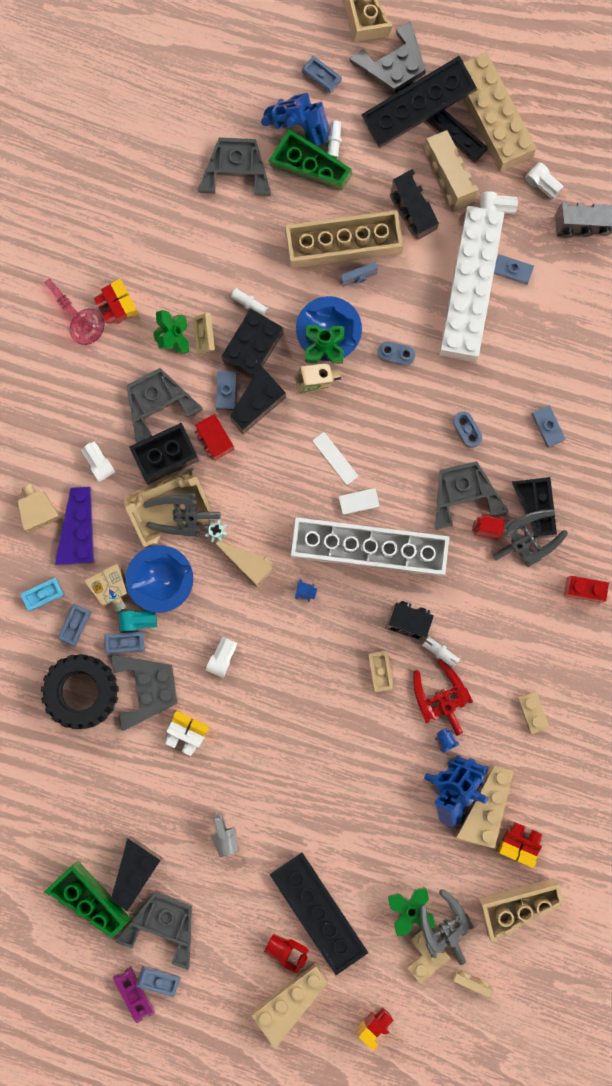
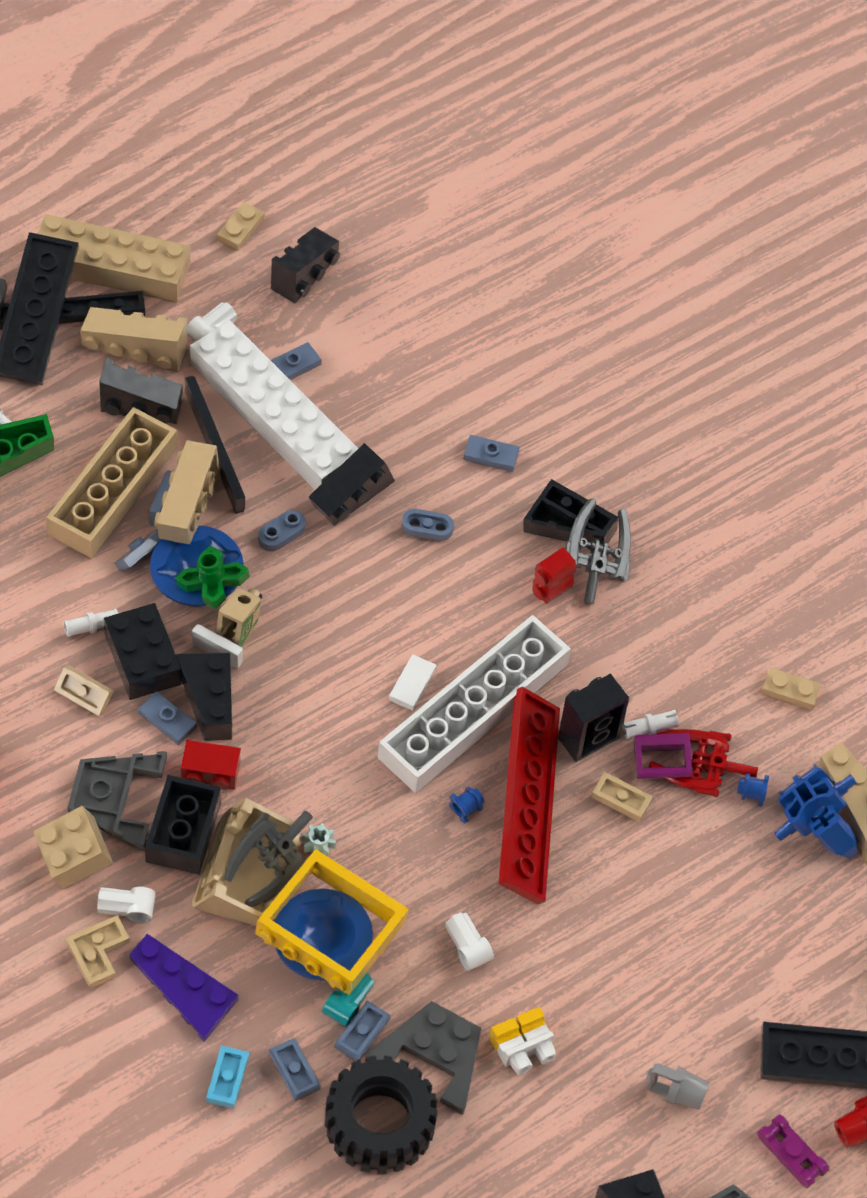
camera: 55 degrees left, 25 degrees down
(36, 509) = (122, 1007): tan torso -> none
(56, 465) = (91, 946): none -> tan plate
(103, 408) = (73, 847): none -> tan brick
(109, 587) = (284, 998): tan torso -> none
(131, 573) = (349, 883): none -> yellow window
(170, 332) = (51, 718): green plant -> none
(239, 922) = (792, 1151): none -> magenta plate
(249, 563) = (385, 835): tan slope -> none
(290, 380) = (214, 643): none -> white tile
(315, 289) = (138, 549): none -> sand blue plate
(335, 458) = (342, 671): white sticker -> none
(336, 621) = (529, 796): none -> red plate
(366, 286) = (188, 492): none -> tan wedge
(418, 272) = (212, 437): none -> black tile
(431, 667) = (663, 742): none -> magenta tile
(455, 368) = (352, 485): none -> black wedge
(463, 485) = (484, 573): dark grey wing -> none
(540, 177) = (220, 269): white piece -> none
(583, 163) = (240, 226): none -> tan plate
(586, 589) = (698, 542): red brick -> none

